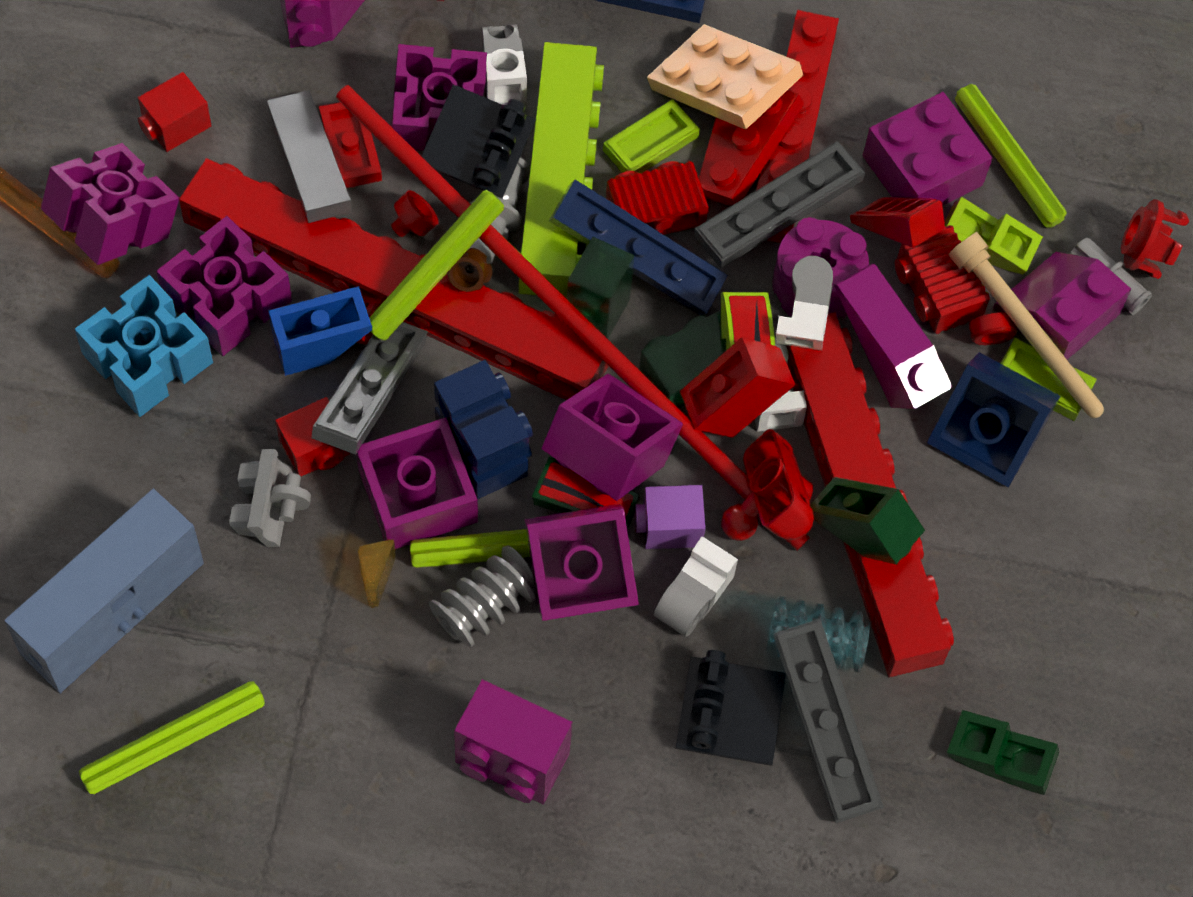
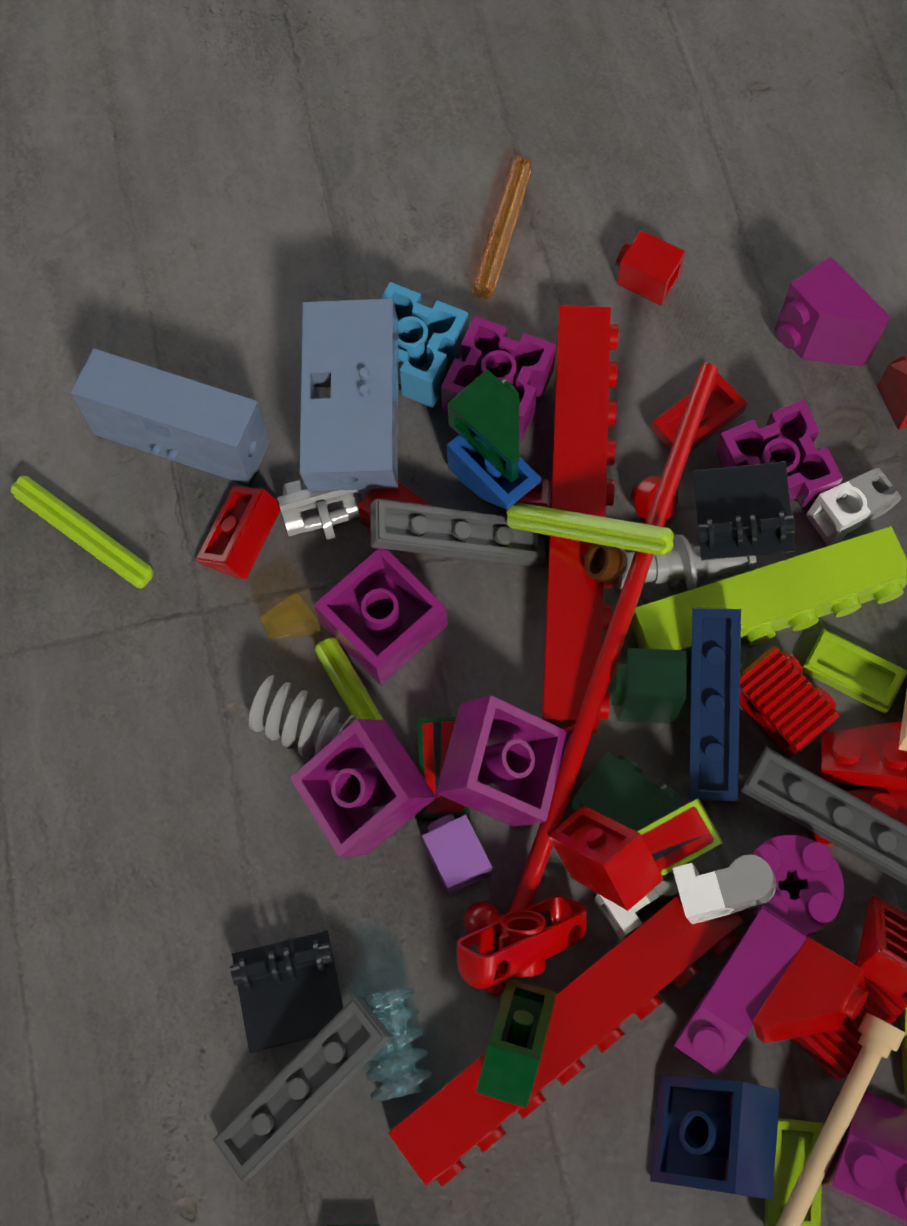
camera: 75 degrees right, 5 degrees up
(109, 203) = (527, 256): magenta brick -> none
(190, 405) = (349, 395): none -> sand blue brick
(250, 589) = (239, 531): none -> red slope
(291, 296) = (489, 421): none -> dark green slope
(309, 156) = (655, 387): tile -> none
(485, 428) = (457, 644): dark blue brick -> none
(512, 743) = (160, 801): magenta brick -> none
(696, 587) = (393, 906): leg -> none
(921, 281) = (812, 995): none -> red slope
(992, 329) = (816, 1093): red tile -> none

